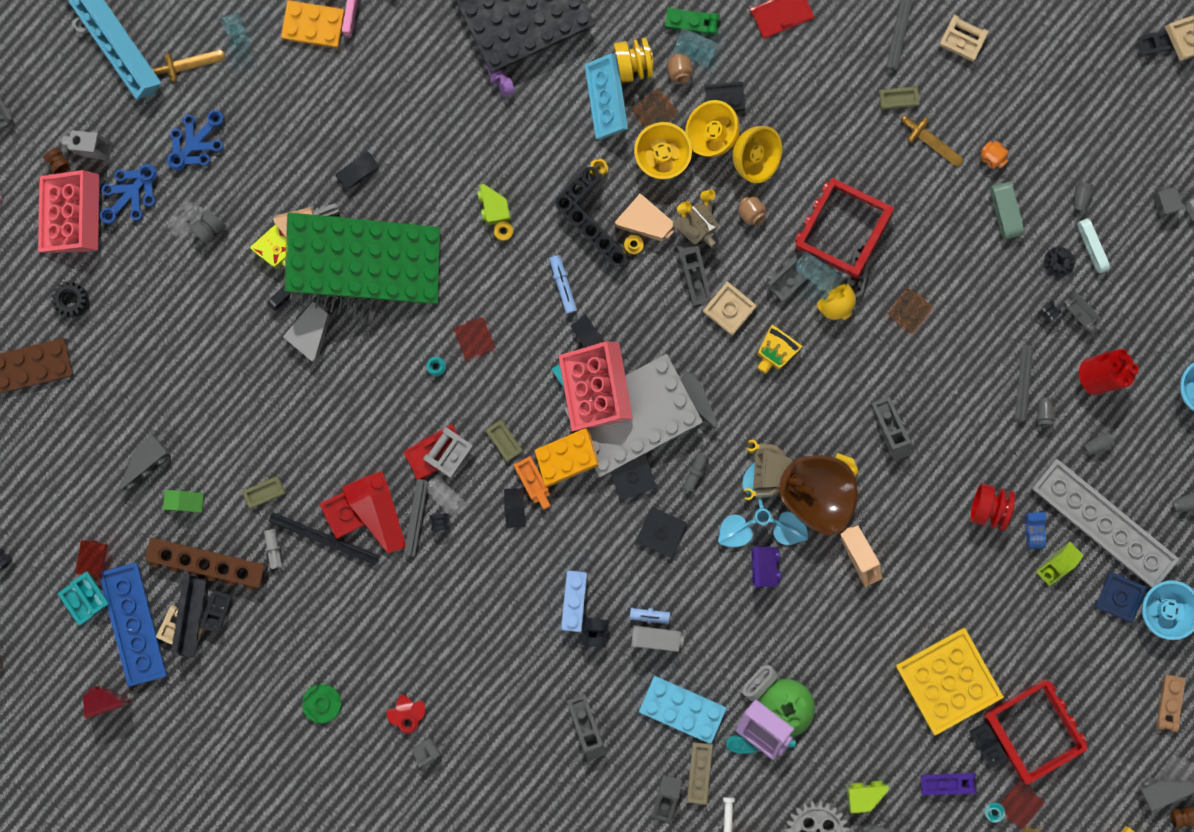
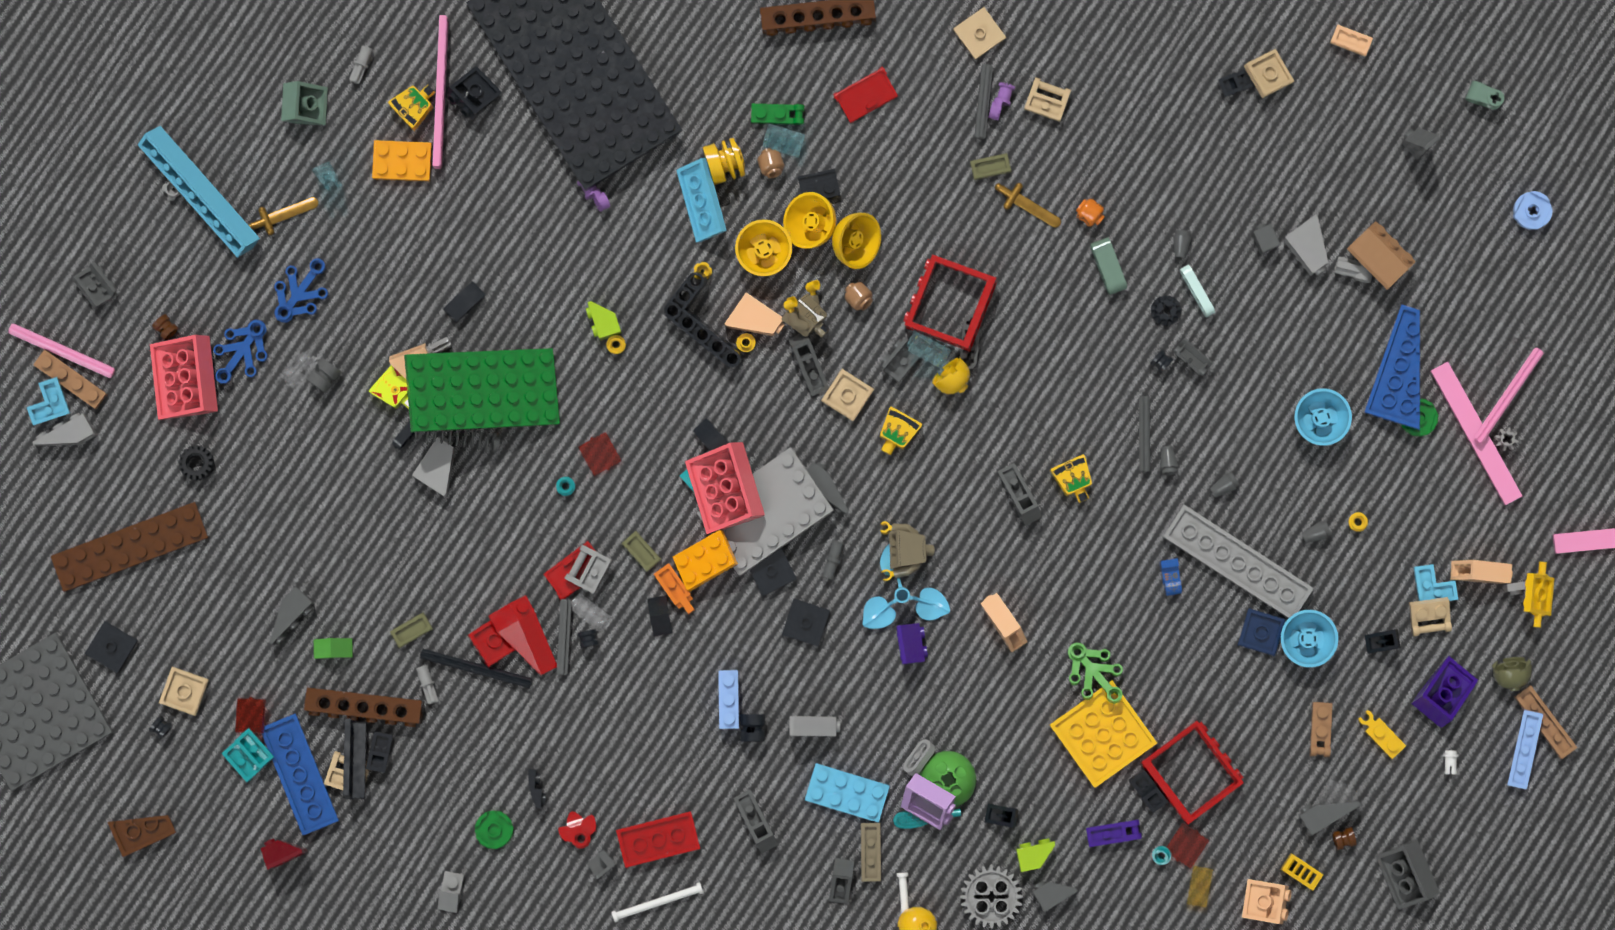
camera: 10 degrees left, 0 degrees up
(28, 526) = (183, 691): none -> tan plate
(88, 144) = (194, 308): light grey torso -> none
(270, 761) = (450, 891): none -> light grey slope
(369, 674) = (537, 795): none -> black slope
(477, 797) = (657, 902): none -> white bar
(486, 734) = (658, 839): none -> red plate
(556, 264) = (689, 410): light blue pin -> none
(649, 616) = (804, 705): light blue pin -> none
(655, 108) = (751, 205): clear orange piece -> none
(820, 492) = (956, 565): reddish brown piece -> none
(837, 752) = (1001, 815): none -> black slope
(849, 461) = (981, 533): yellow arm -> none
(910, 310) = (1025, 375): clear orange piece -> none
(918, 32) = (1002, 99): none -> medium lavender connector
(947, 615) = (1093, 670): none -> bright green plant
(948, 418) = (1073, 477): none -> torso
(997, 508) = (1125, 559): red wheel -> none
(1060, 563) = (1198, 606): lime slope -> none
(1107, 372) = (1222, 414): red cylinder -> none

